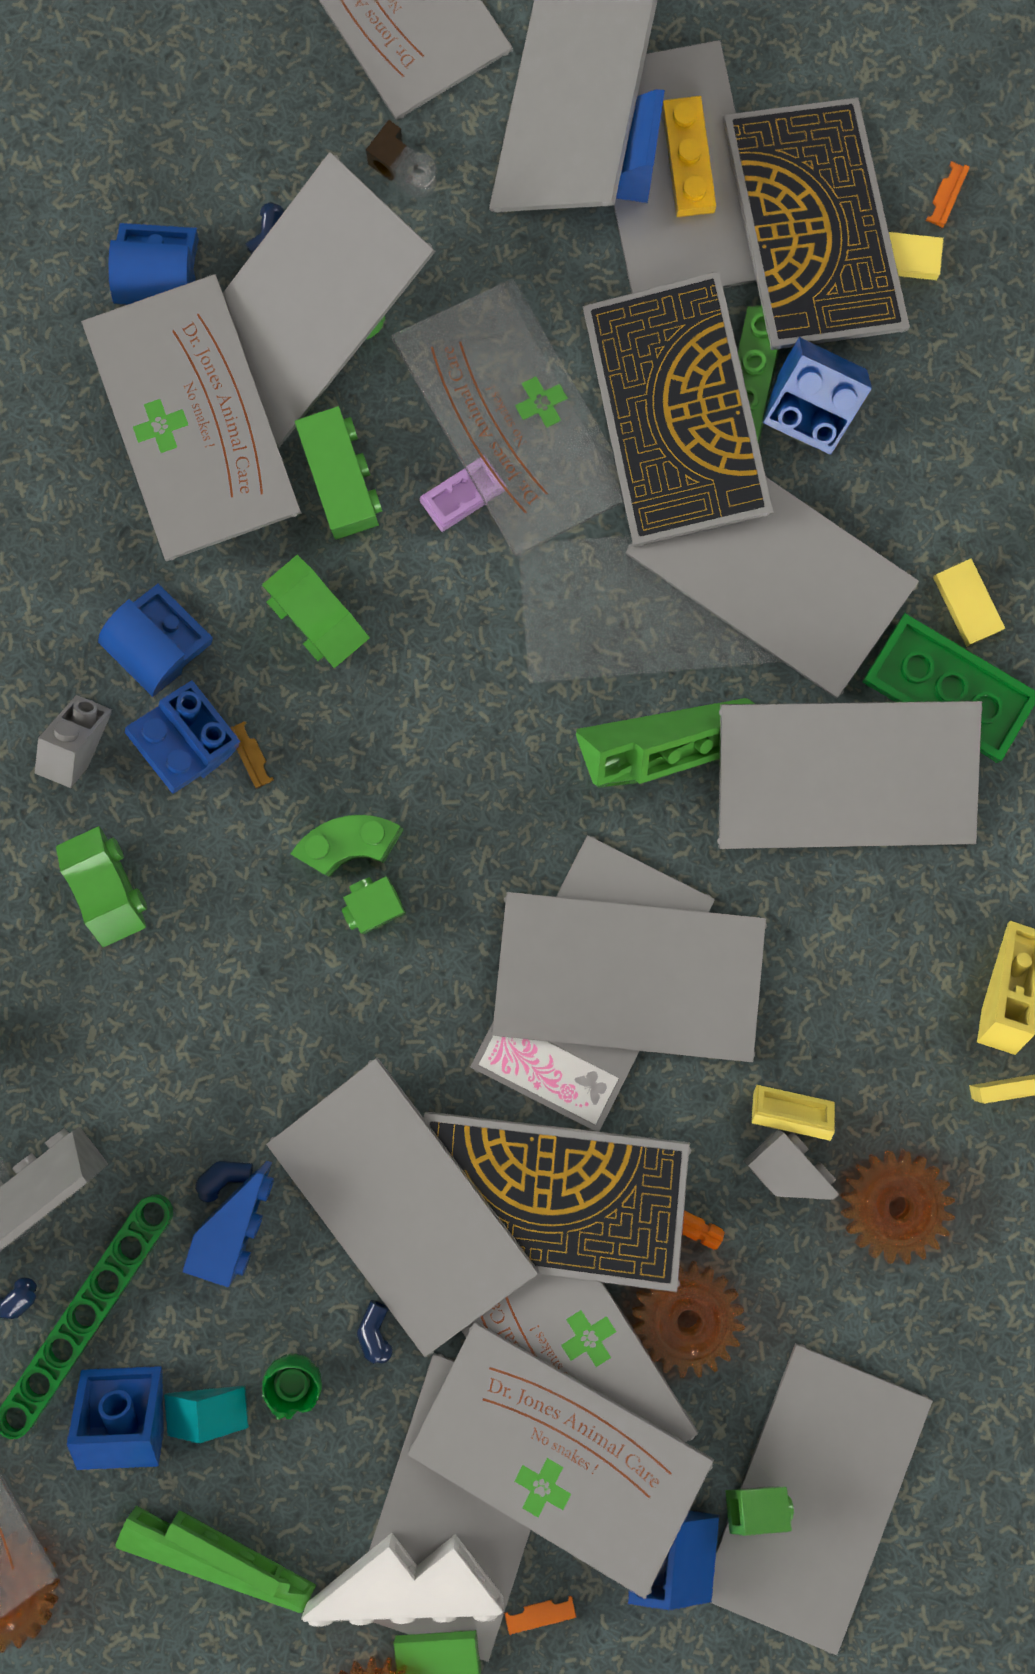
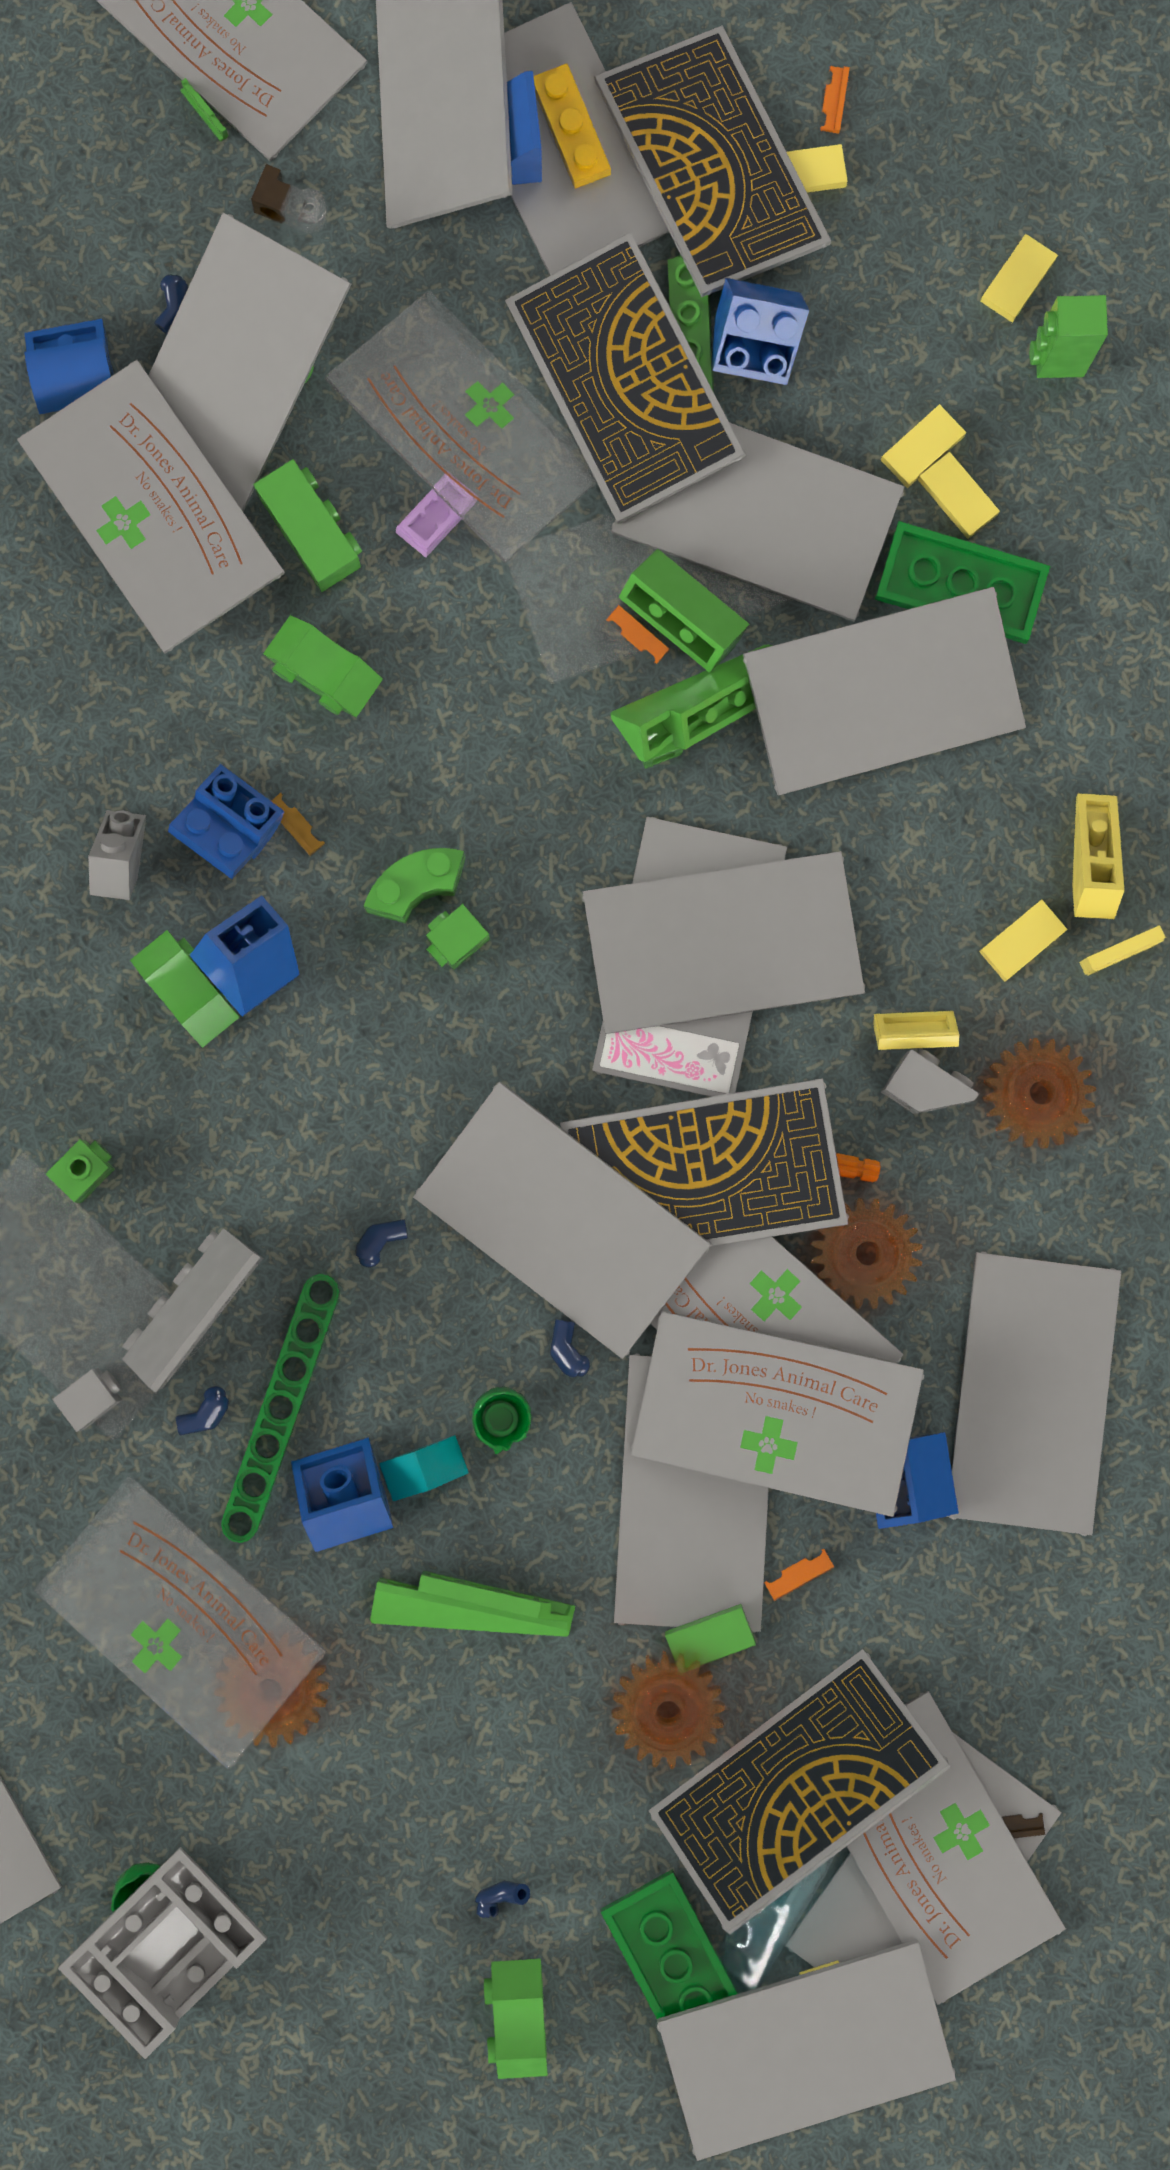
camera: 25 degrees left, 0 degrees up
(153, 639) = (170, 734): blue brick -> none
(167, 873) = (248, 955): none -> blue slope
(221, 1240) = (396, 1294): blue slope -> none
(345, 56) = (203, 110): none -> bright green piece
(394, 1587) = (648, 1579): white slope -> none
(625, 657) = (638, 634): none -> orange piece
(674, 646) = (683, 610): none -> bright green brick
(759, 1510) = (980, 1411): bright green brick -> none
(920, 1050) = (1023, 940): none -> light yellow tile
(947, 546) = (923, 446): none -> light yellow tile

